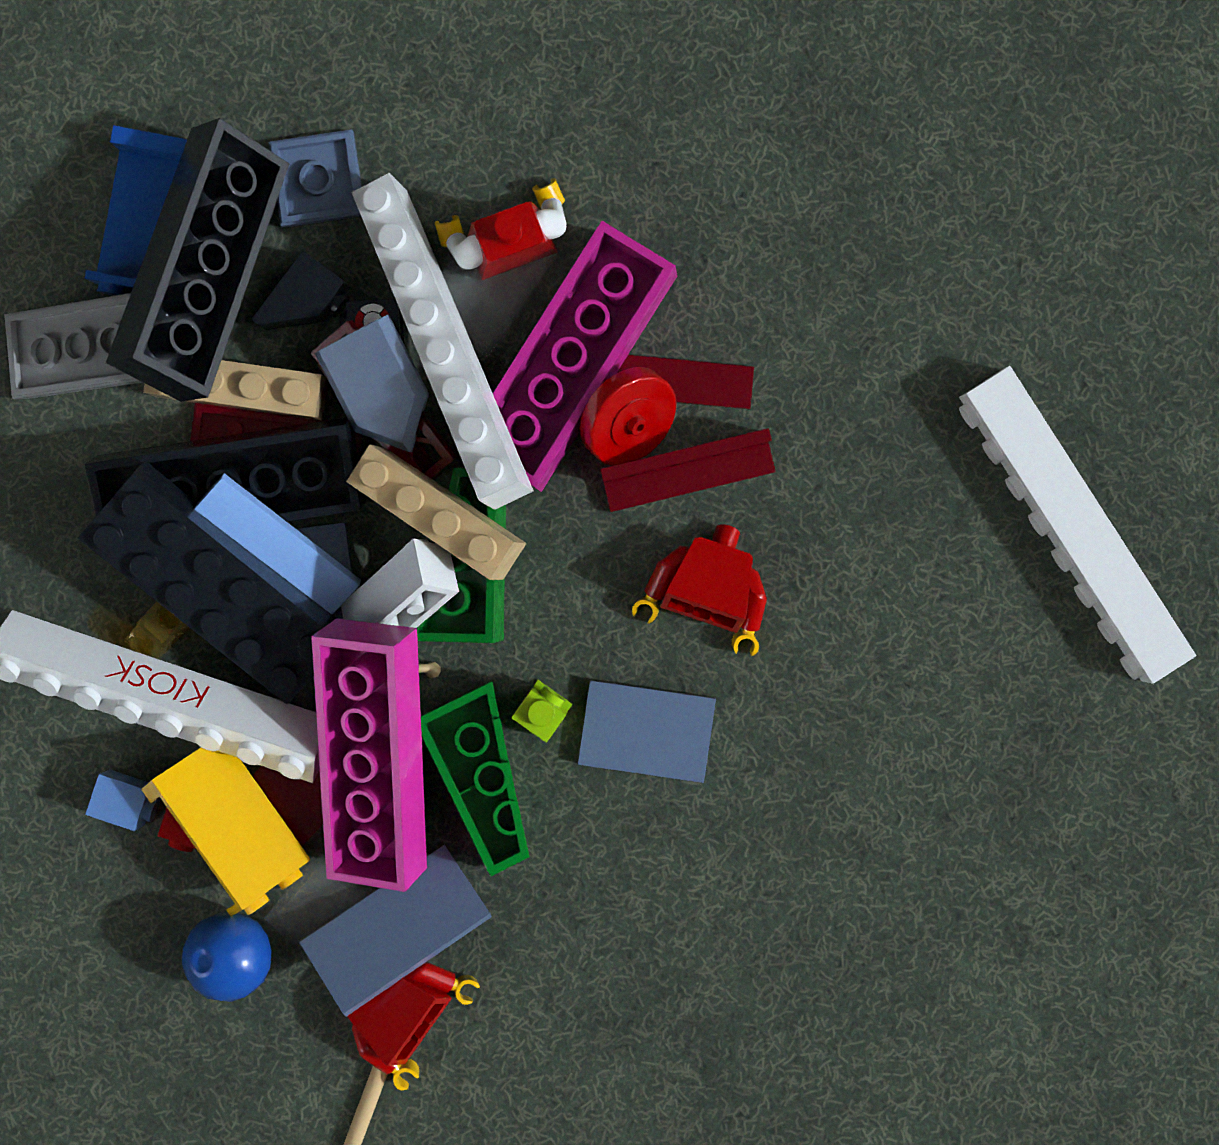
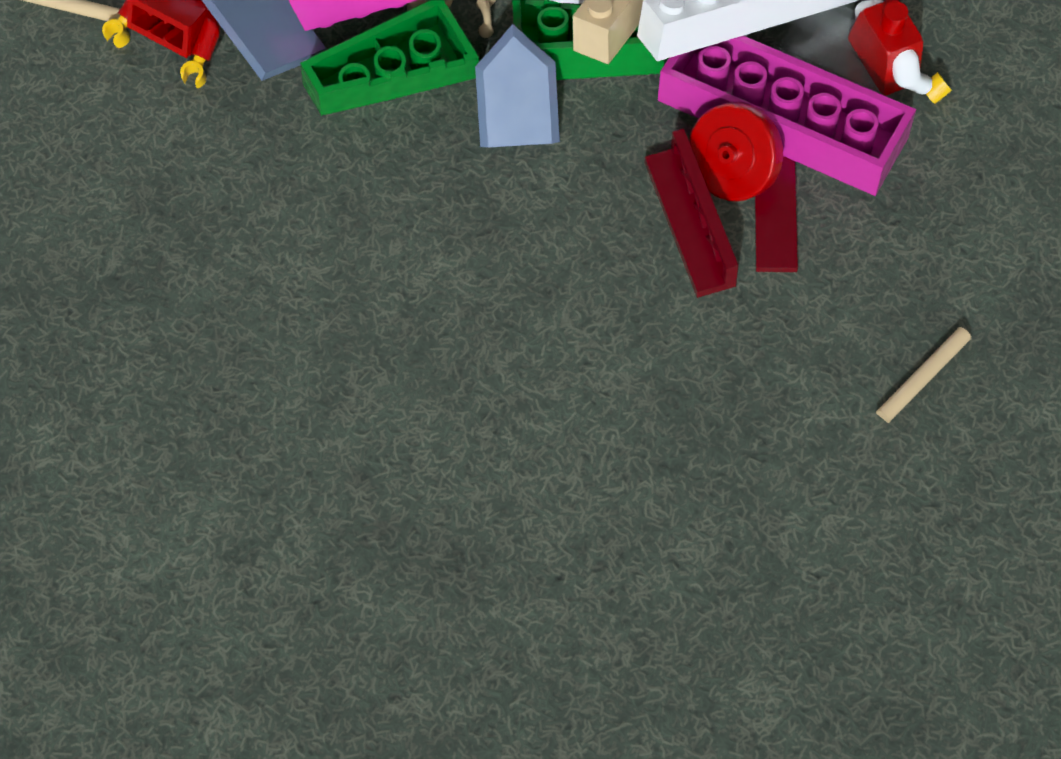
camera: 90 degrees right, 25 degrees down
(535, 642) = (517, 93): none -> tile
(542, 711) = (452, 109): lime brick -> none
(646, 731) = (438, 204): sand blue tile -> none
(710, 585) = (581, 239): red torso -> none
(881, 254) = (924, 374): none -> tan bar
(1076, 526) = (668, 568): white brick -> none

